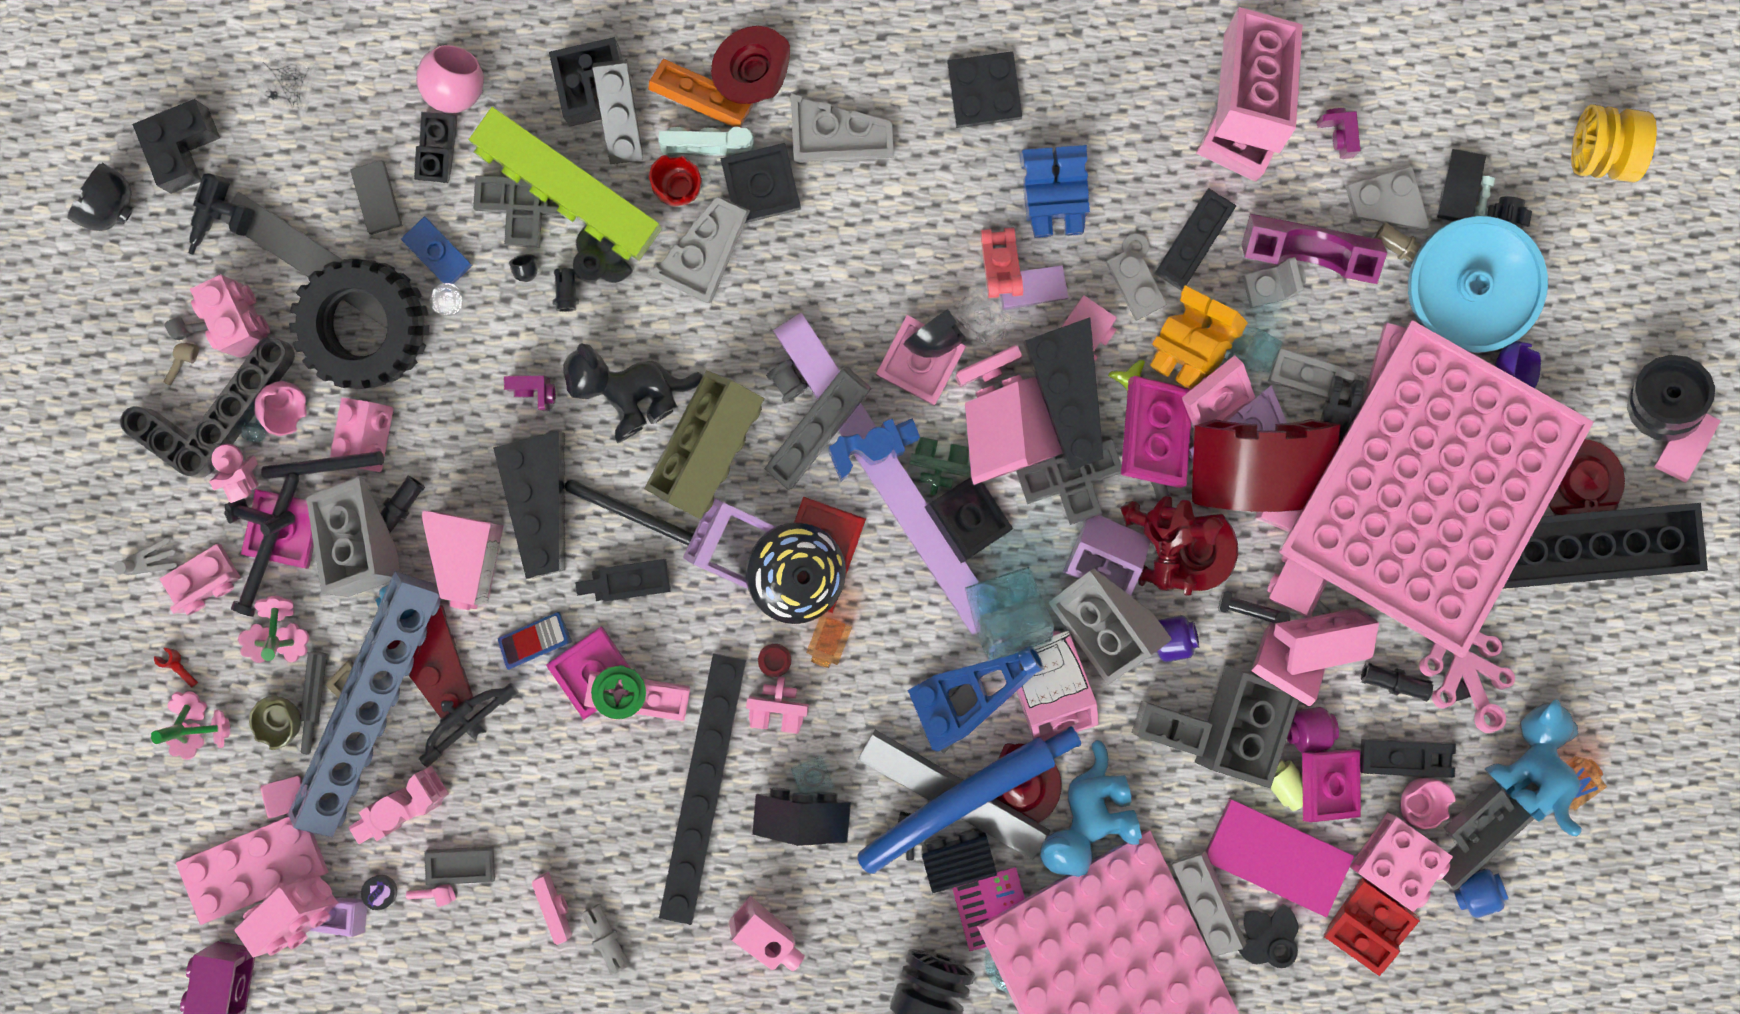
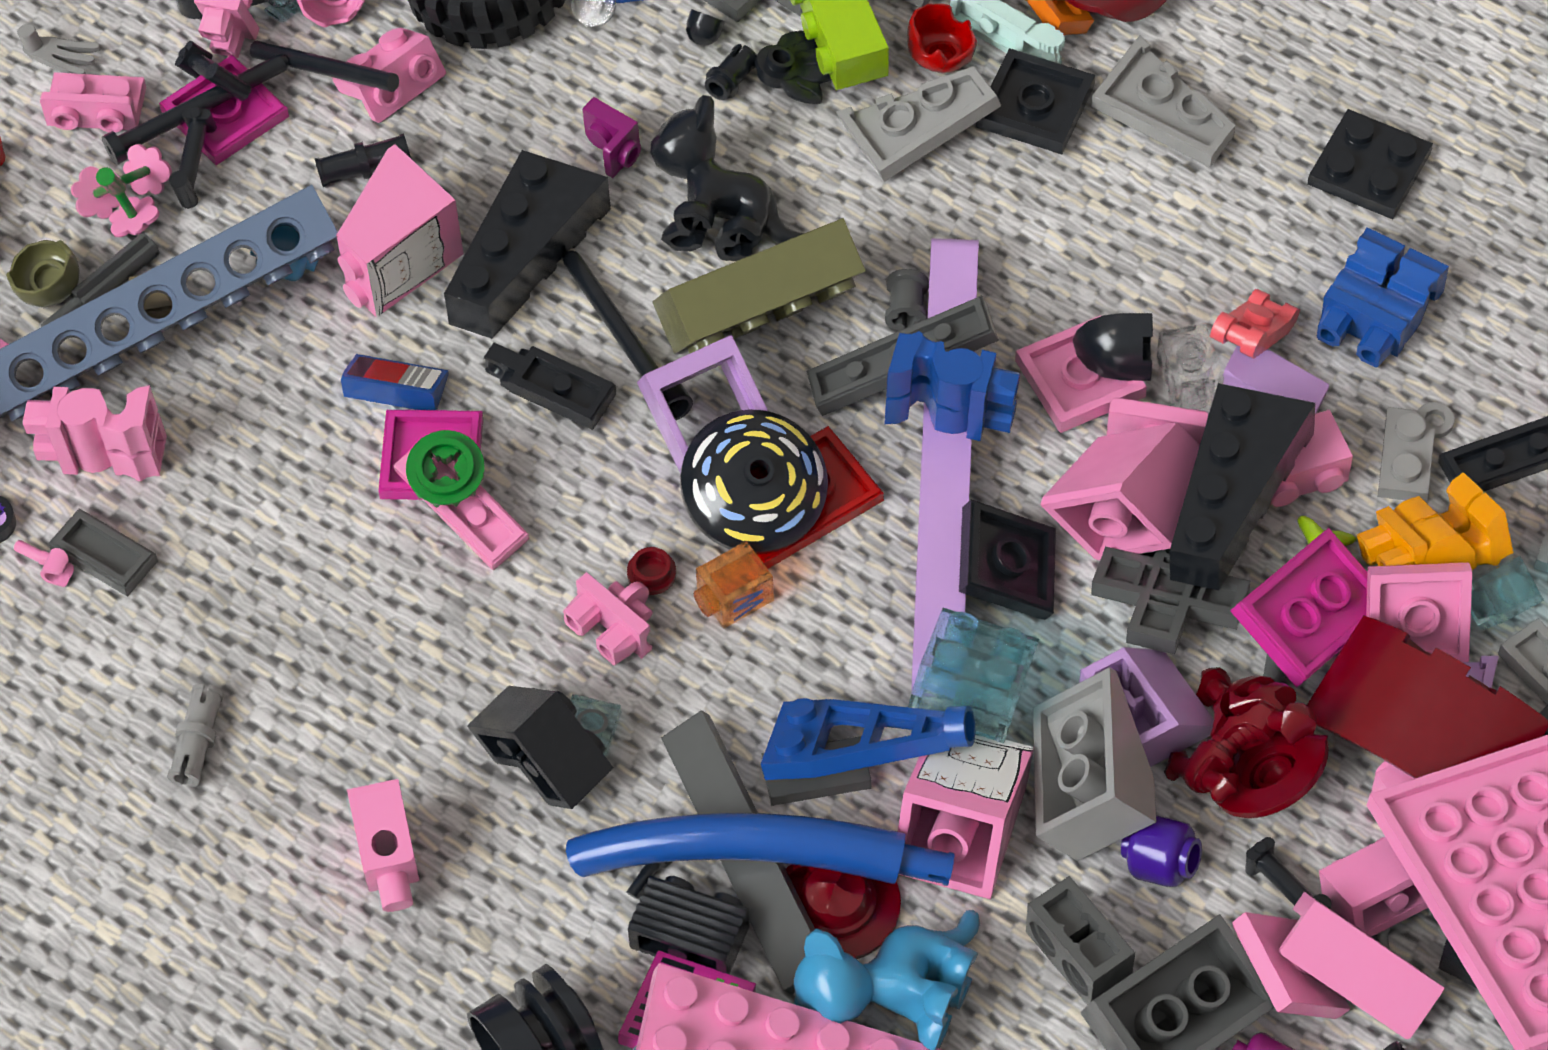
camera: 35 degrees right, 30 degrees down
(306, 603) = (183, 181): none -> black piece
(350, 540) = (287, 147): light grey slope -> none
(438, 666) = (263, 339): dark red wing -> none
(457, 714) = (244, 386): black piece -> none
(553, 908) = (167, 656): bright pink plate -> none
(702, 789) = (446, 655): black plate -> none
(955, 464) = (1008, 485): clear green hips -> none

